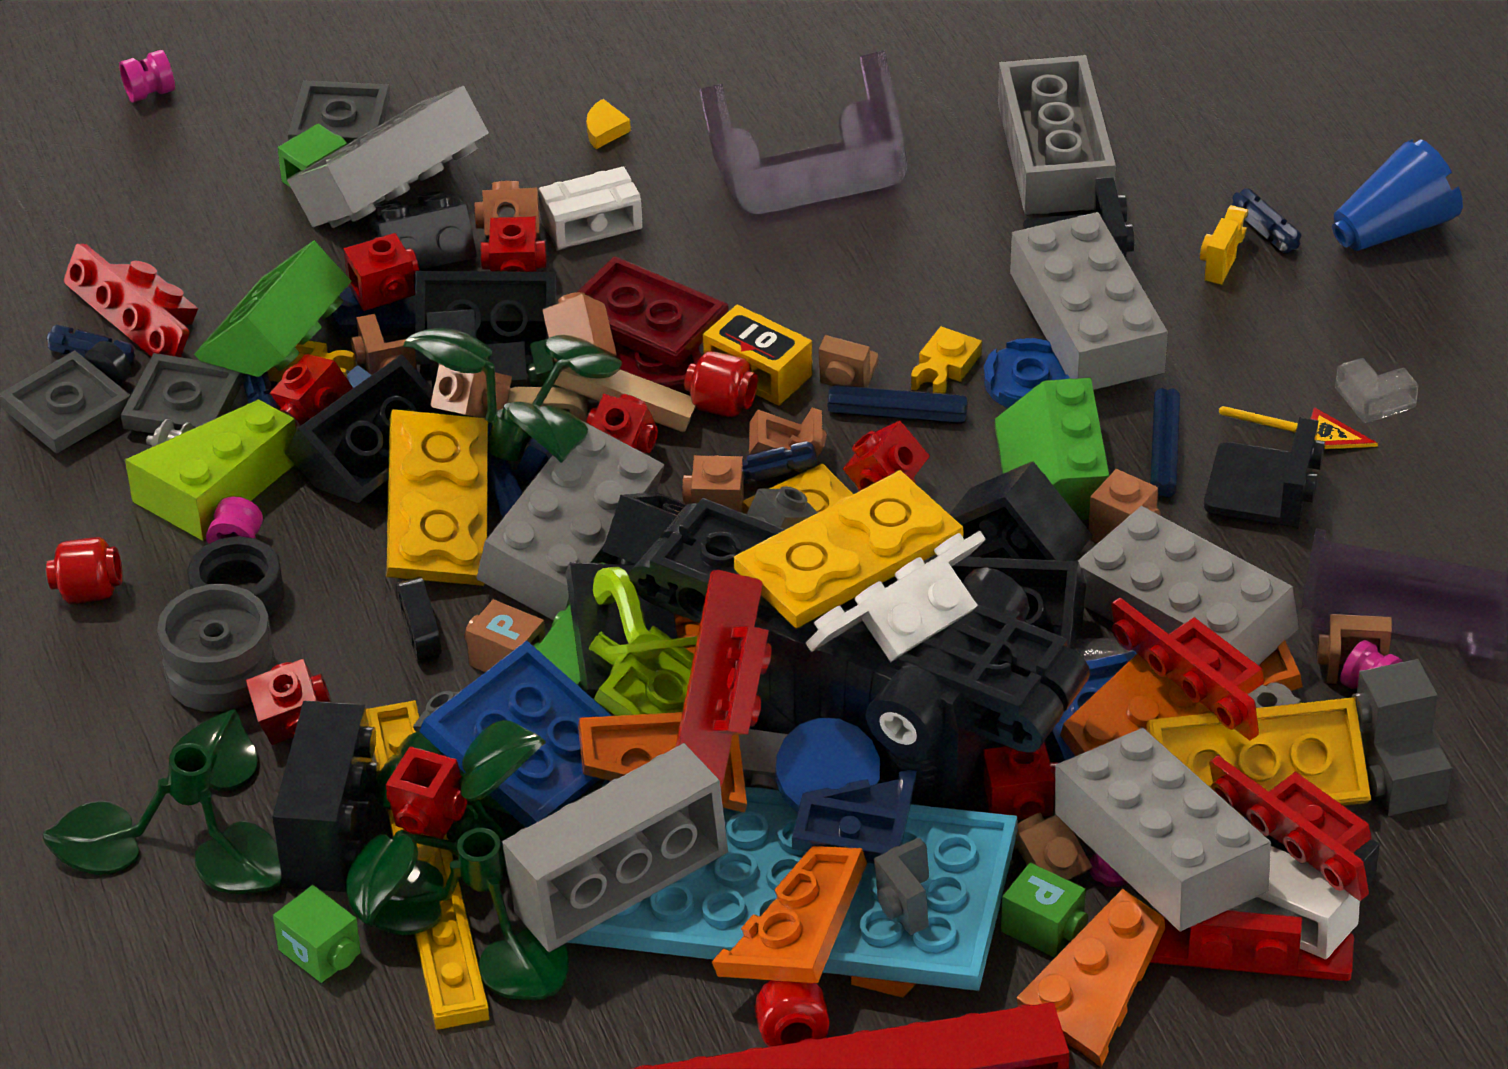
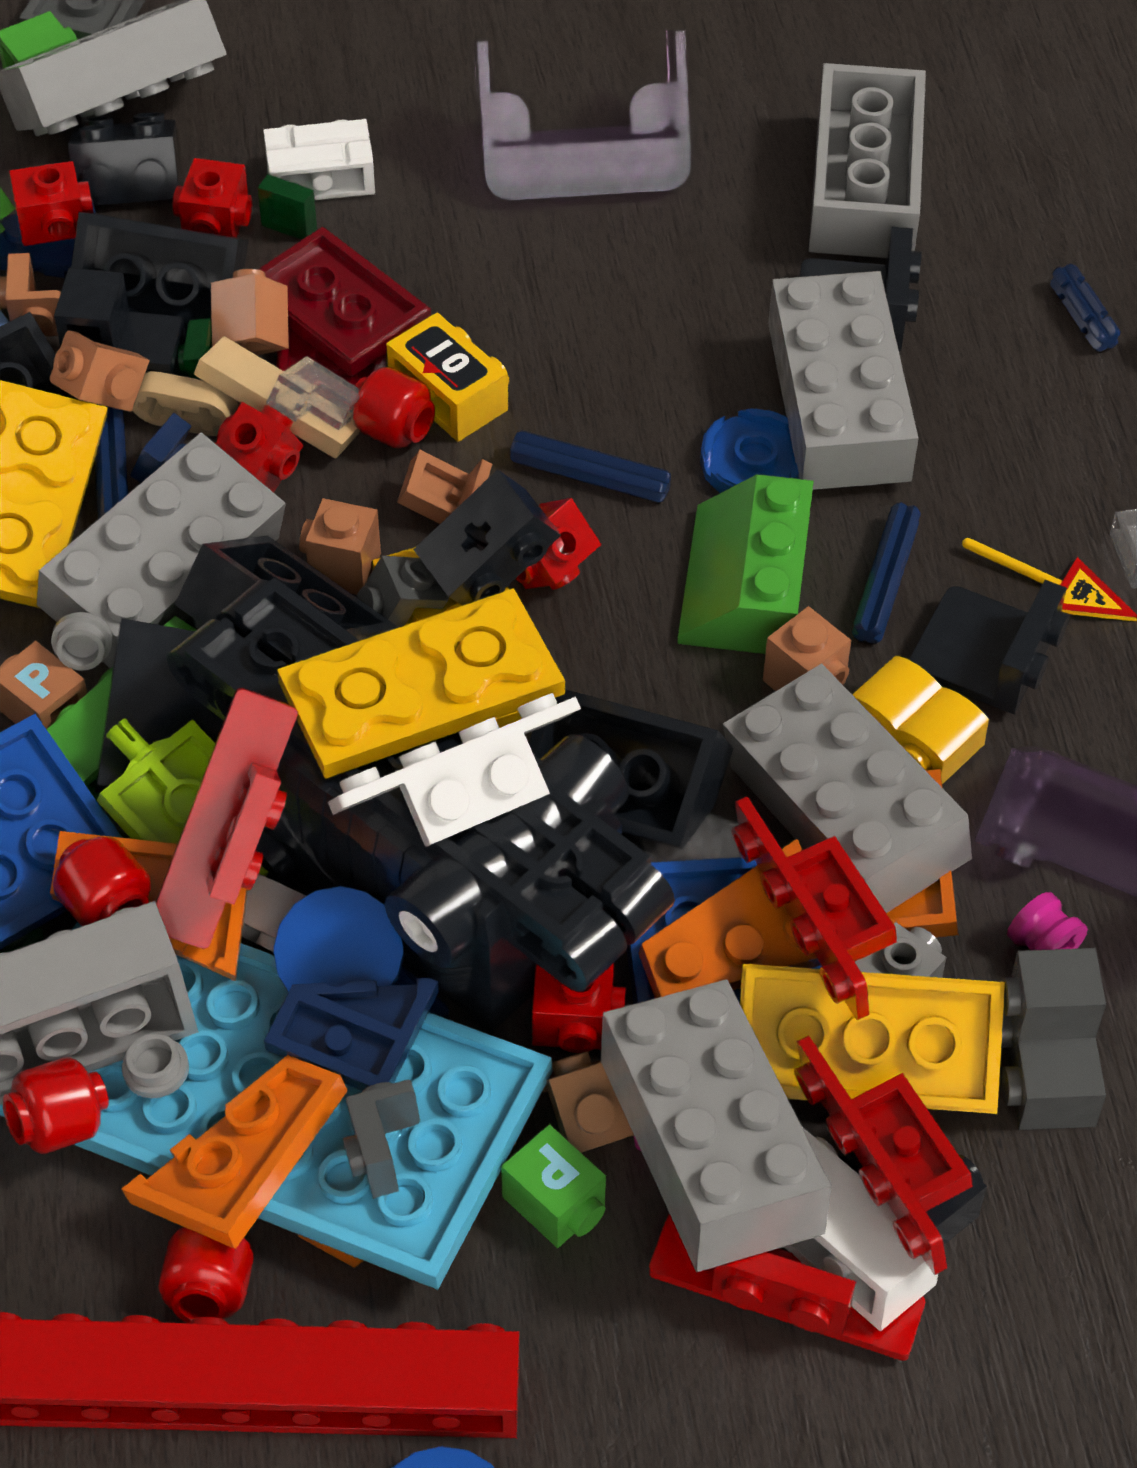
camera: 10 degrees right, 10 degrees up
(506, 195) = (239, 144): nougat brick -> none
(534, 590) = (81, 640): none -> light grey plate
(548, 425) = (135, 429): dark green plant -> none
(576, 248) = (287, 207): none -> dark green plate
(606, 124) = (373, 61): yellow tile -> none
(613, 585) = (165, 745): lime piece -> none
(627, 741) = (99, 879): none -> red head
(638, 914) = (55, 1105): none -> red head
(658, 378) = (314, 390): none -> clear piece
(706, 876) = (155, 1066): none -> light grey plate
(779, 462) = (412, 518): dark blue axle -> none
(844, 457) = (487, 541): none -> black brick
(846, 363) = (543, 406): medium nougat bracket -> none
(945, 357) = (665, 415): yellow plate -> none
(1023, 516) = (682, 649): black brick -> none
(1098, 974) = (590, 1293): orange wing -> none
(1221, 247) = (1021, 335): yellow plate -> none
(1240, 533) = (924, 718): none -> yellow brick
(1345, 634) = (1029, 877): medium nougat bracket -> none

